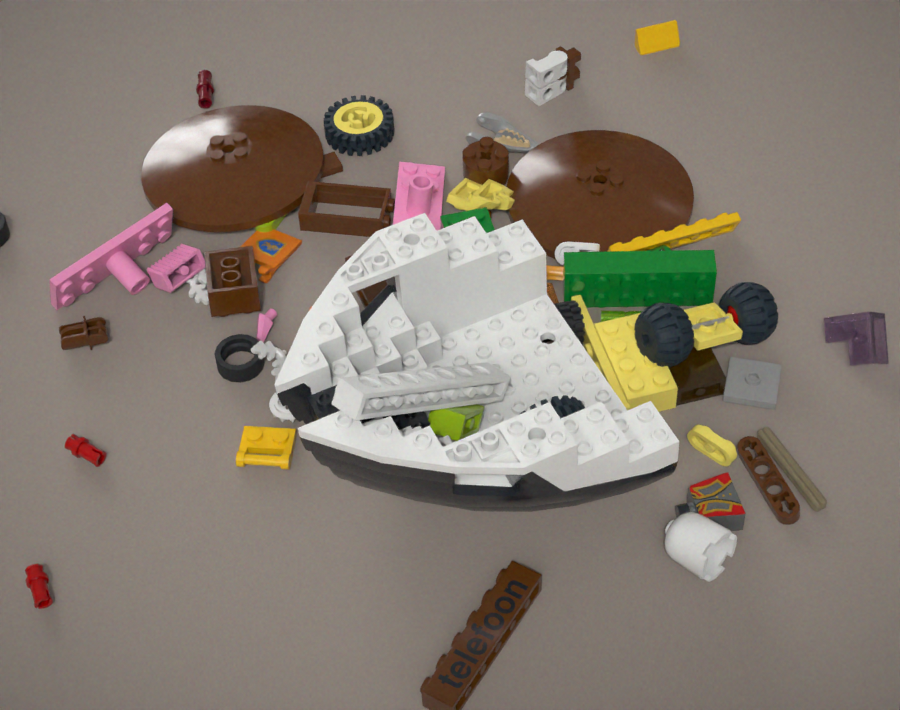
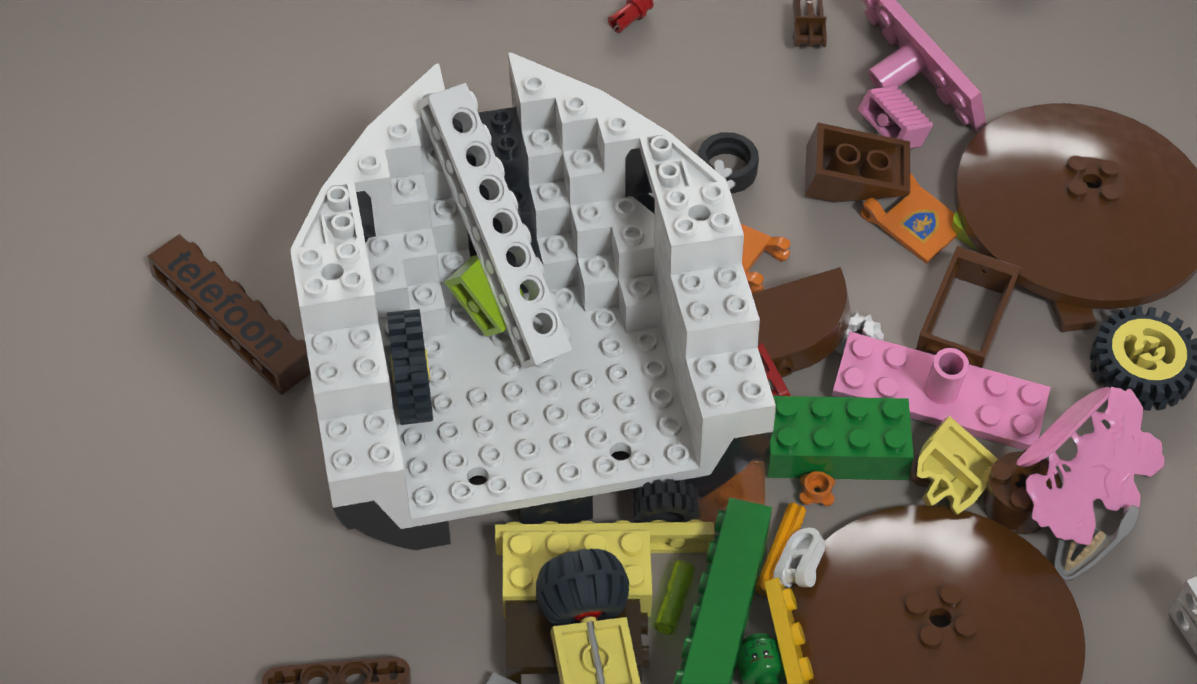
camera: 100 degrees right, 5 degrees up
(264, 324) = (780, 198): bright pink bar -> none
(453, 132) = (1101, 467): none -> bright pink plant
(699, 544) = (255, 551): white cylinder -> none
(712, 445) = (409, 628): light yellow plate -> none
(715, 500) = (315, 598): torso -> none

